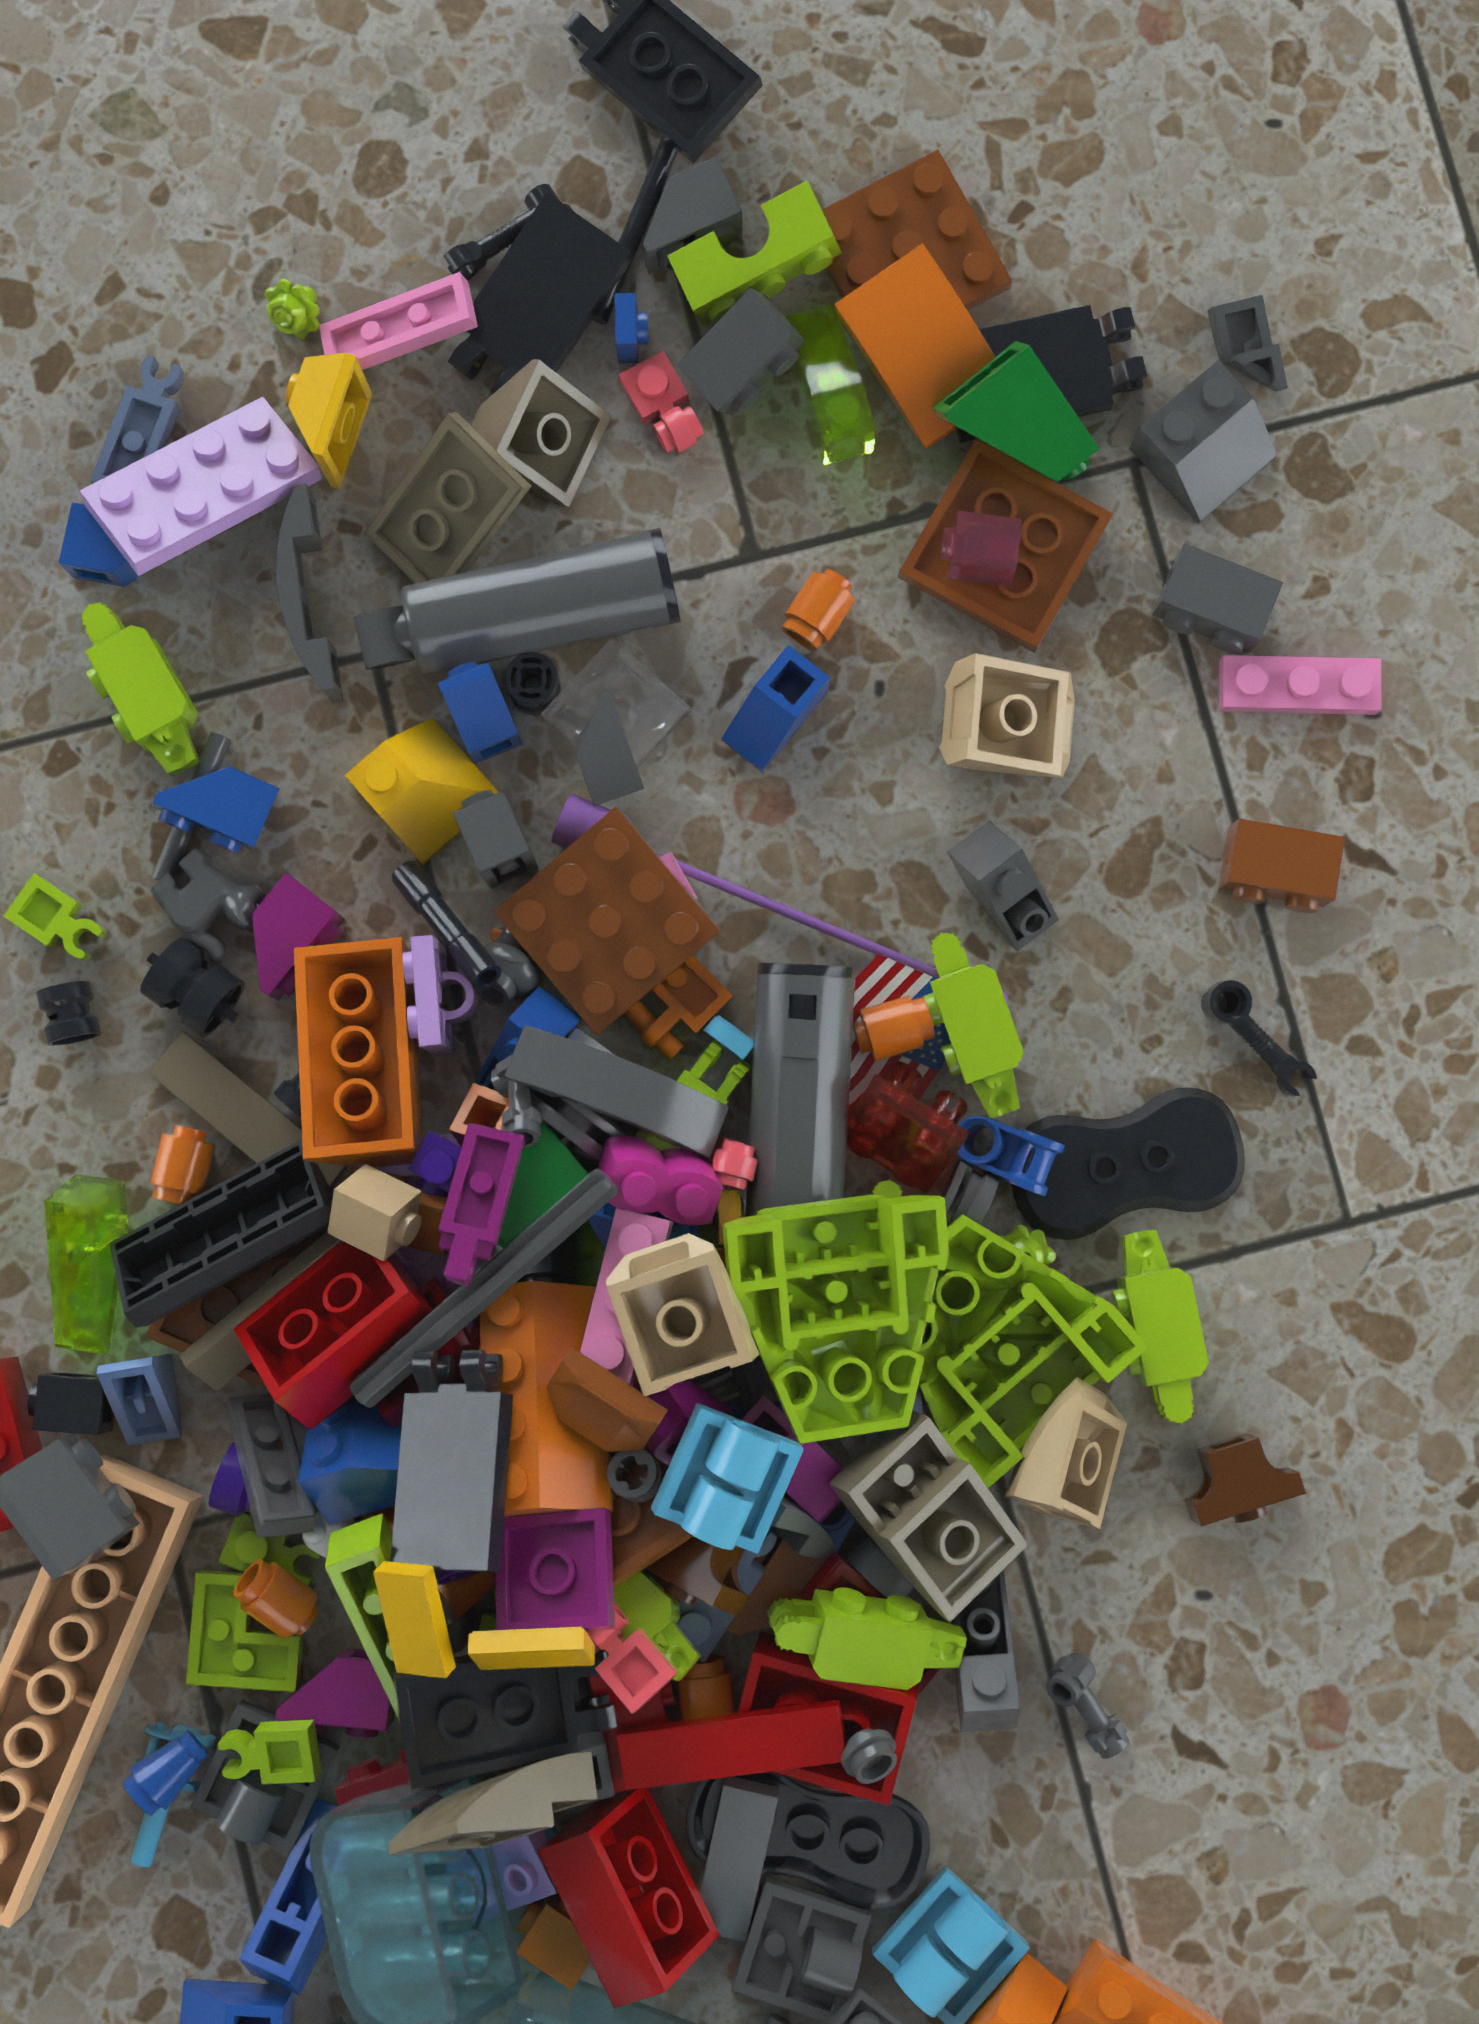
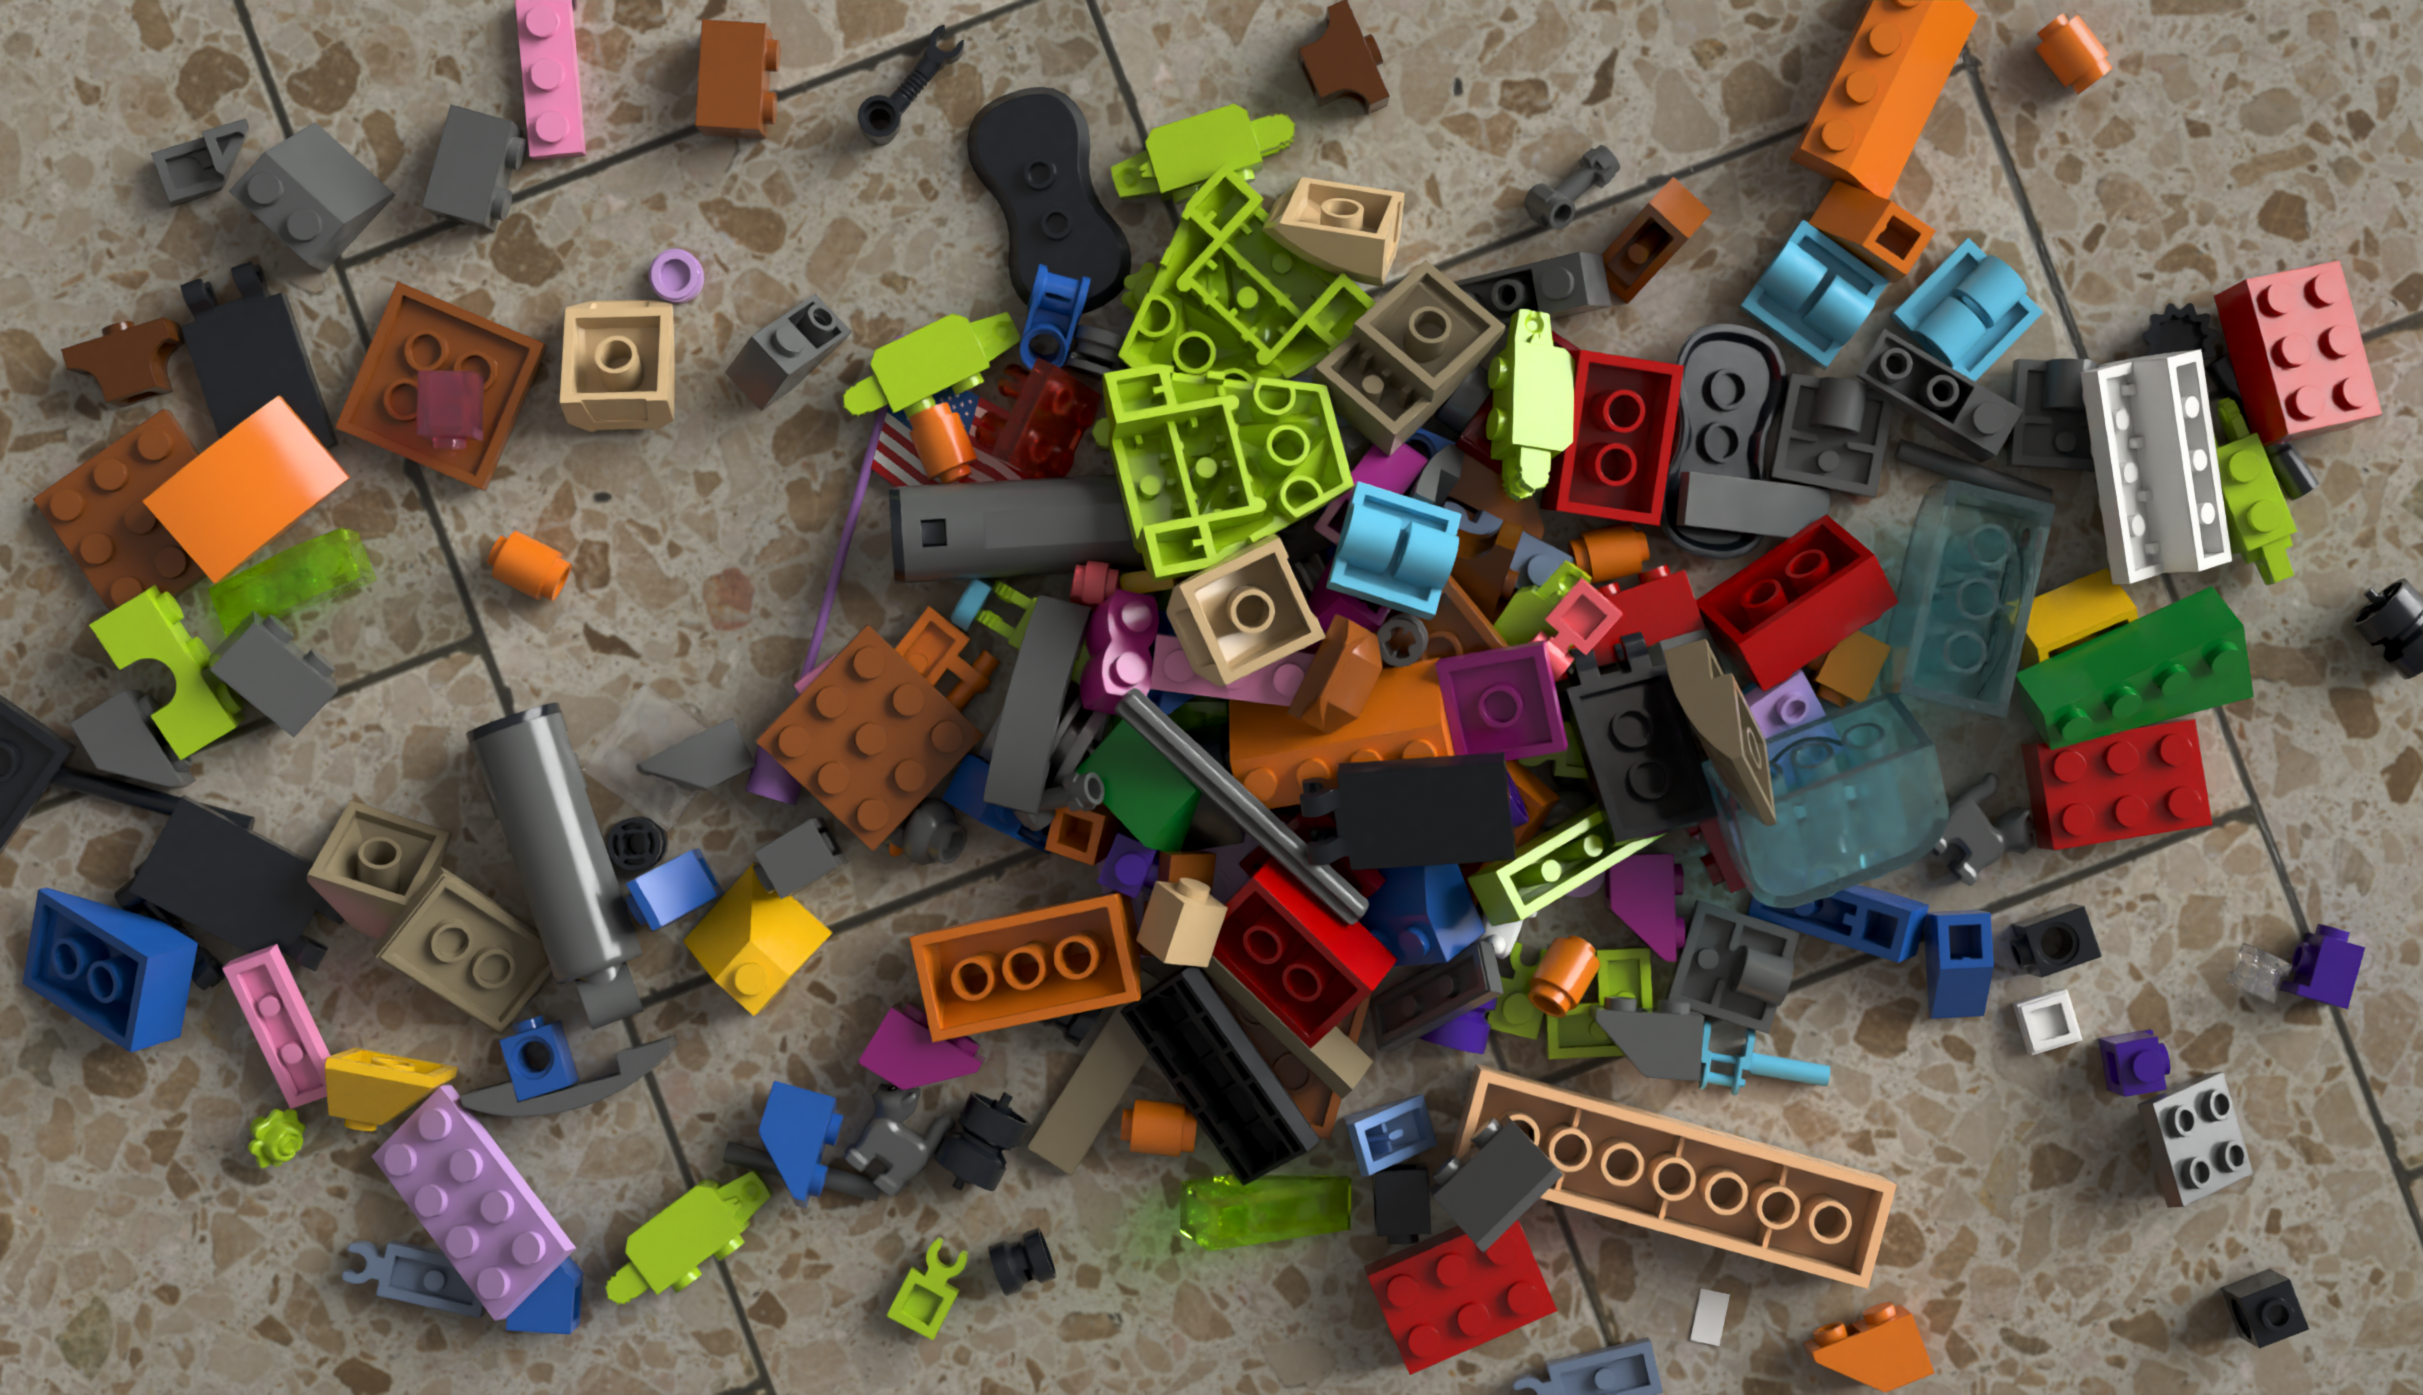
camera: 95 degrees left, 5 degrees up
(165, 1772) = (1738, 1059): blue cone -> none
(194, 1693) = (1656, 1041): none -> dark grey slope
(279, 1750) = (1703, 950): lime plate -> none
(318, 550) = (530, 1080): none -> blue brick
(414, 1619) = (1559, 829): yellow tile -> none
(428, 973) = (944, 908): lavender plate -> none
(462, 946) = (911, 876): black piece -> none
(474, 171) = (110, 968): none -> blue slope
(478, 1199) = (1156, 820): magenta hinge -> none
(531, 1648) = (1573, 715): yellow tile -> none
(630, 328) = (258, 790): blue plate -> none
(659, 393) = (322, 758): coral plate -> none
(731, 1744) = (1645, 520): red tile -> none
(776, 708) = (636, 596): blue slope -> none
(869, 1755) = (1637, 388): dark grey plate -> none
(1021, 414) = (307, 384): green slope -> none
(1025, 1785) = (1652, 239): none -> dark orange slope
(1062, 252) = (128, 360): none -> reddish brown brick
(1090, 785) = (676, 276): none -> lavender tile

